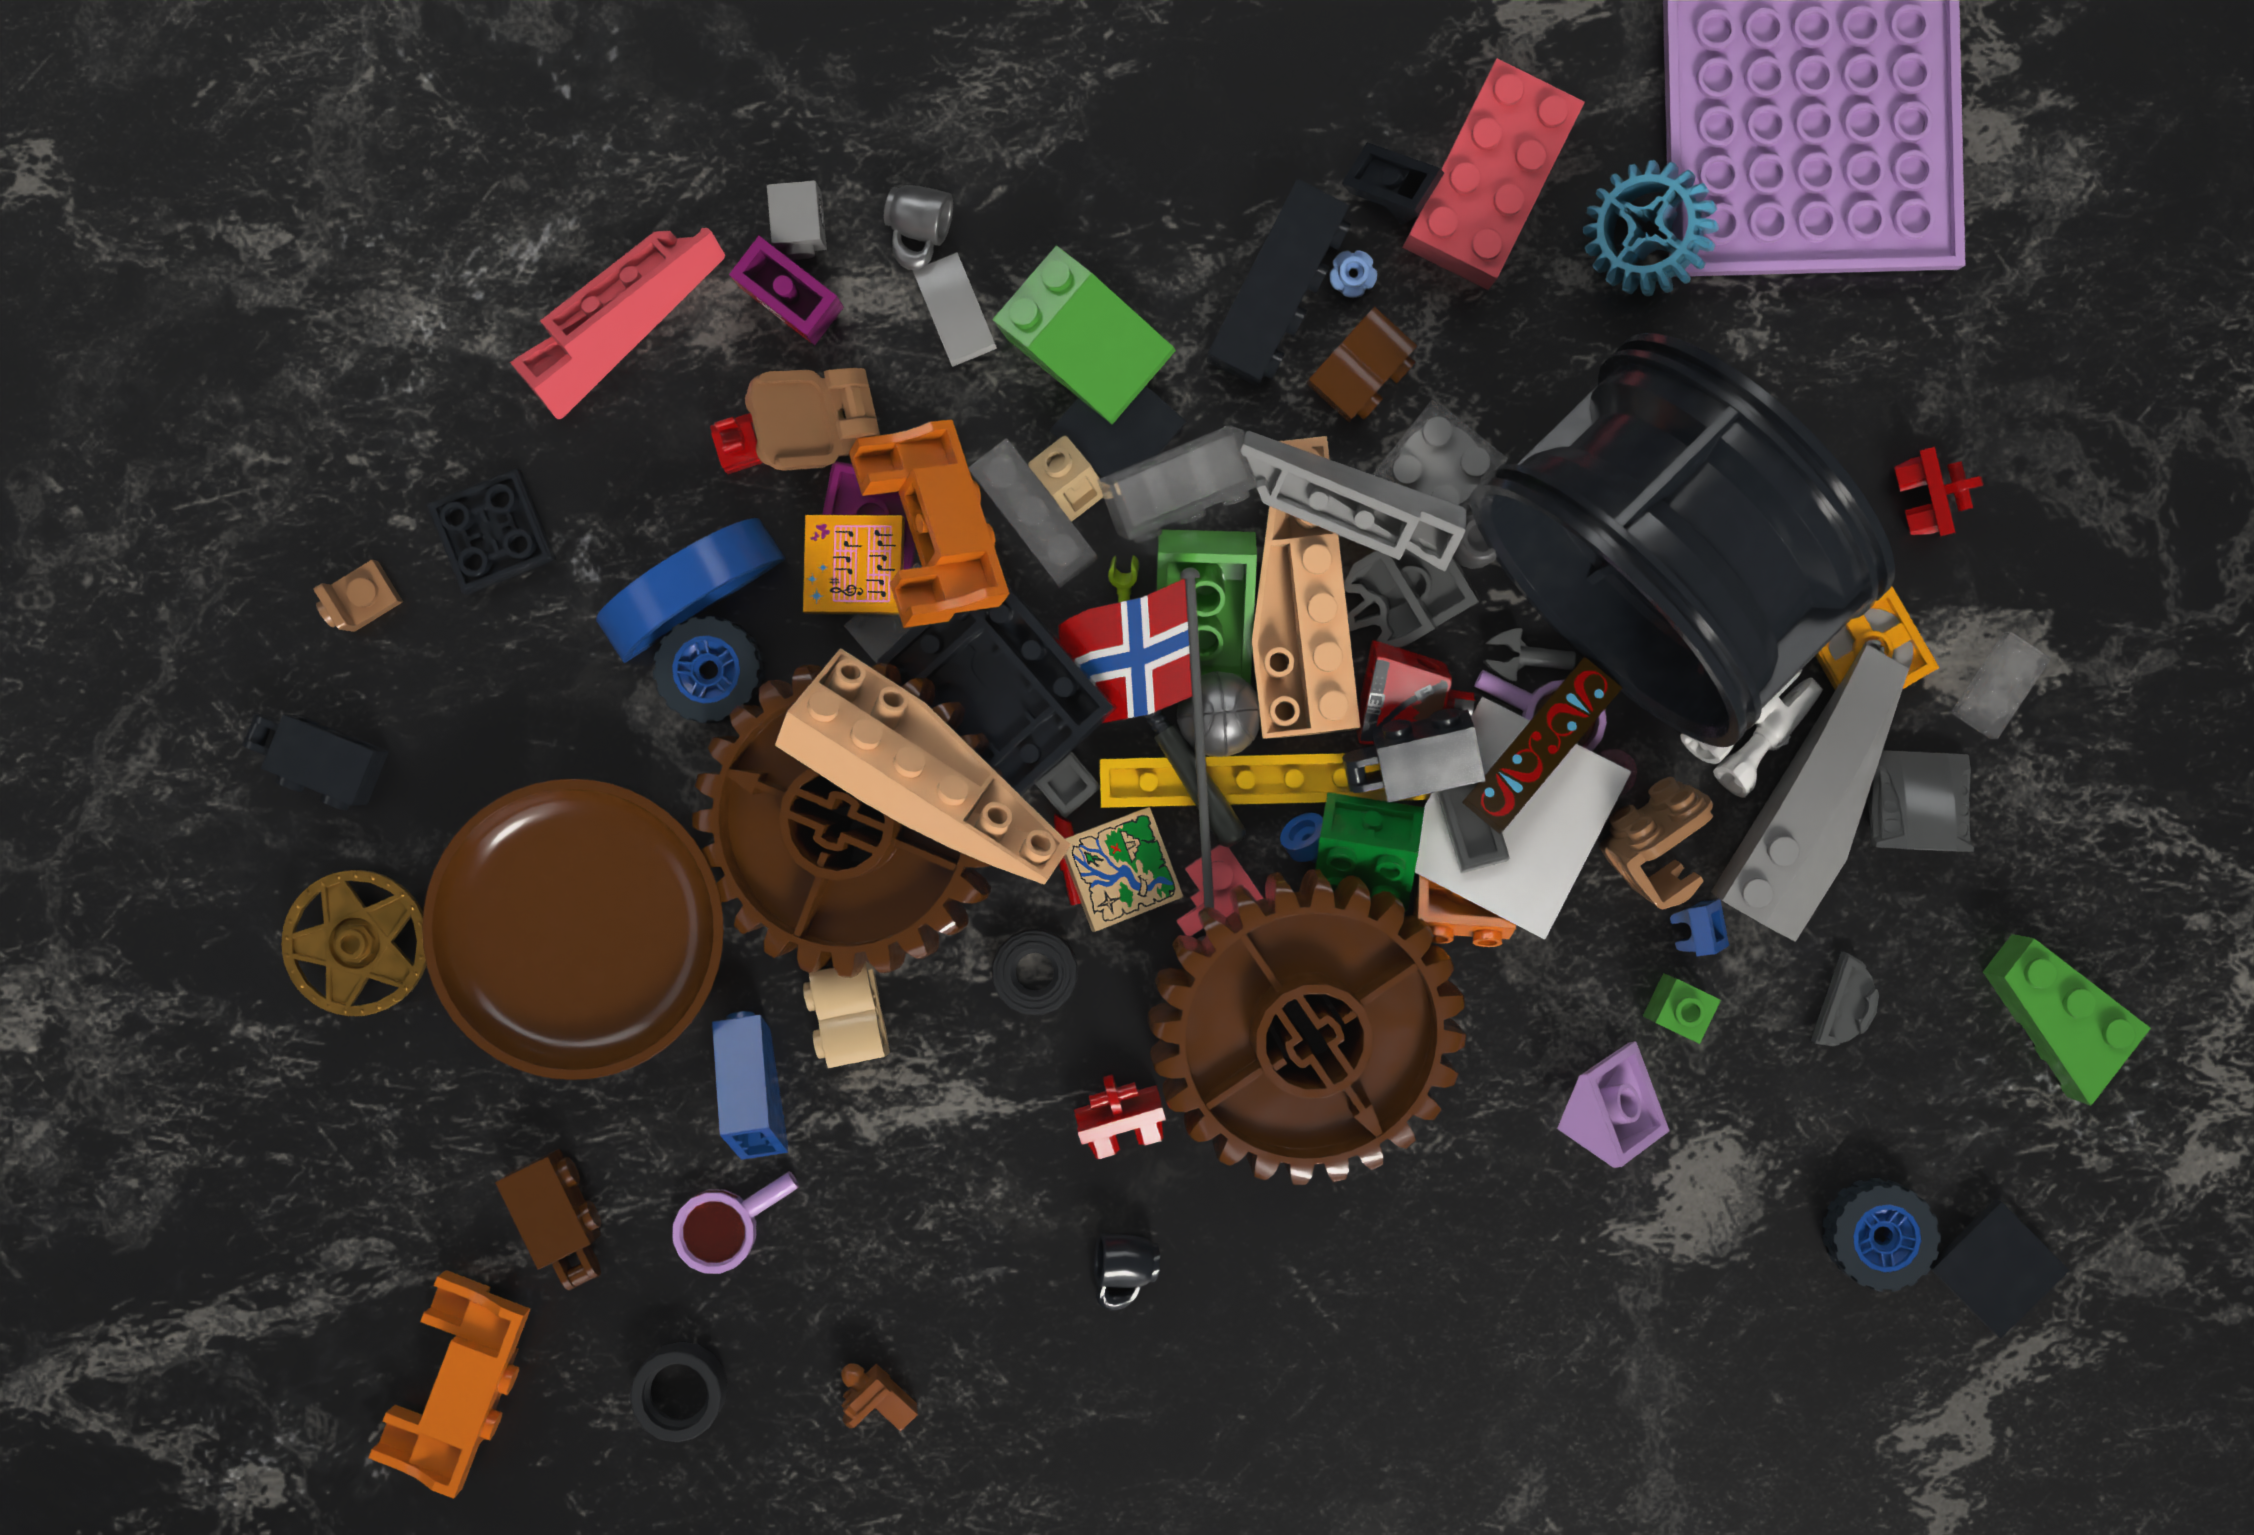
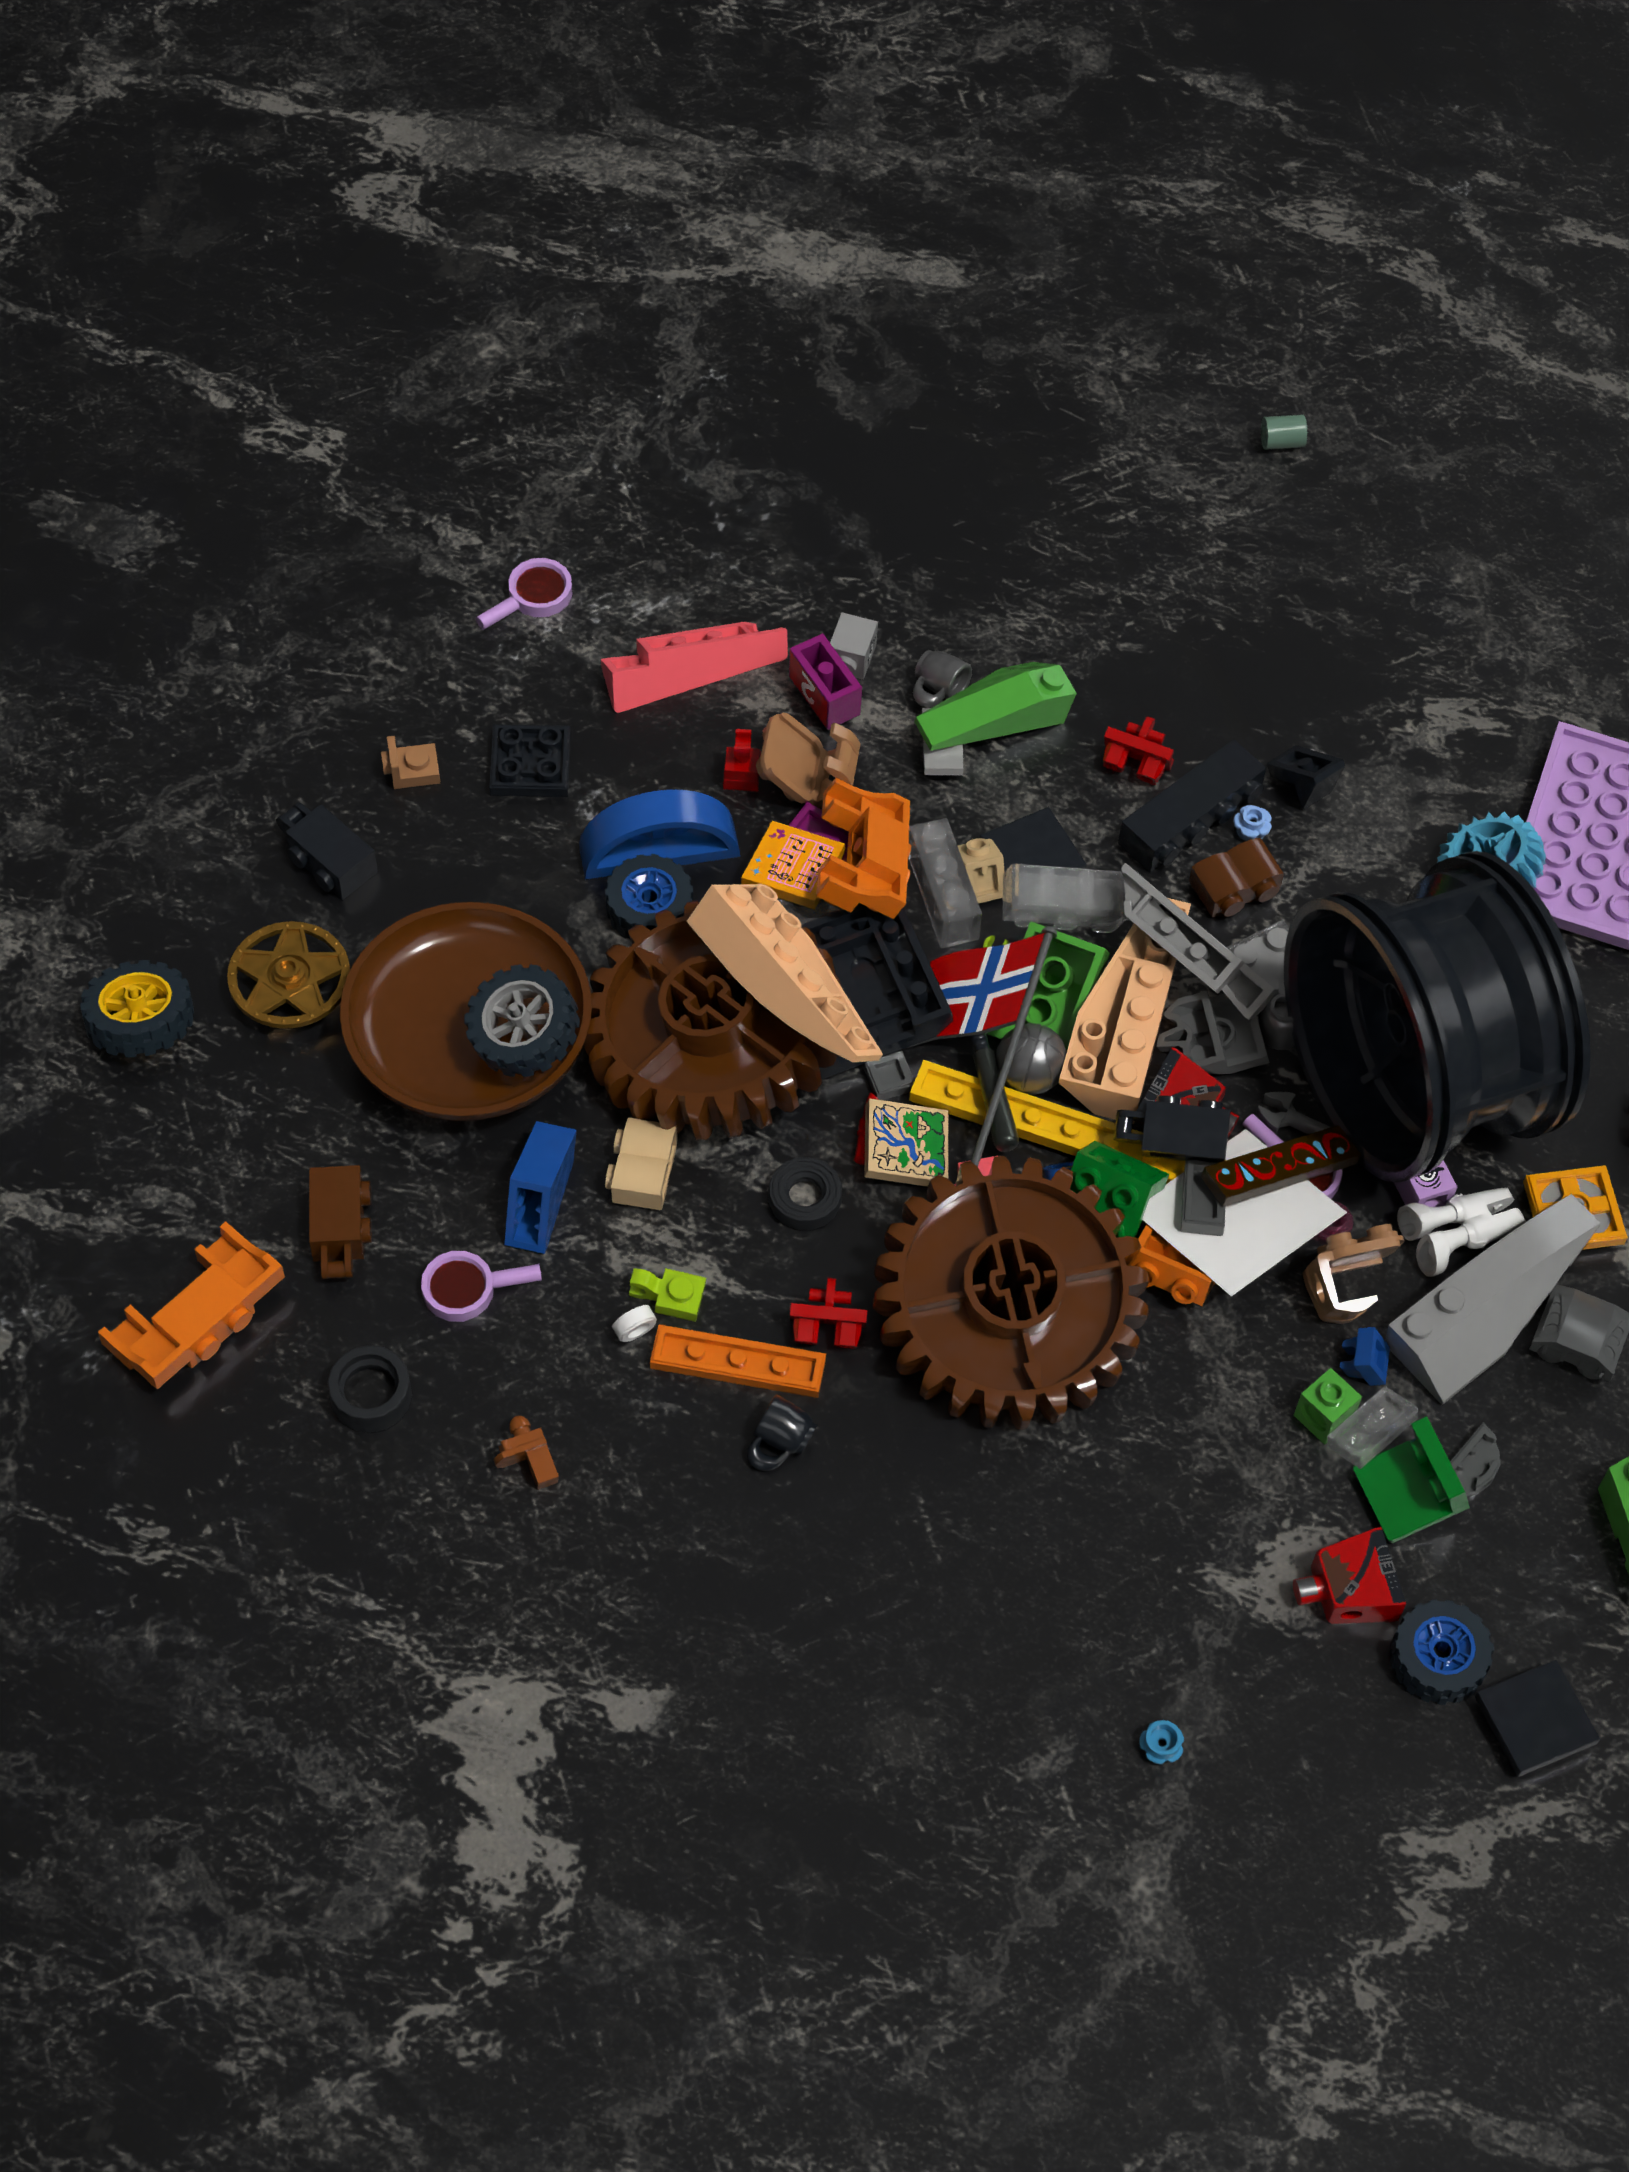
camera: 20 degrees right, 30 degrees down
(168, 1057) = (131, 992): none -> black wheel
(391, 284) = (535, 588): none -> lavender piece
(613, 972) = (509, 990): none -> black wheel
(920, 1206) = (634, 1323): none -> white tile
(947, 1146) = (675, 1294): none -> lime plate
(1006, 226) = (1000, 705): none -> bright green wedge
(1043, 1196) = (738, 1361): none -> orange tile
(1083, 335) = (1031, 779): bright green slope -> none
(1209, 232) = (1144, 746): none -> red hips
(1493, 174) = (1382, 793): coral brick -> none
(1615, 1108) = (1245, 1459): lavender slope -> none
(1632, 1454) = (1166, 1731): none -> dark azure plate
(1743, 997) = (1372, 1427): none -> clear plate
(1769, 1195) = (1354, 1581): none -> red torso
(1798, 1065) = (1412, 1484): none -> green bracket

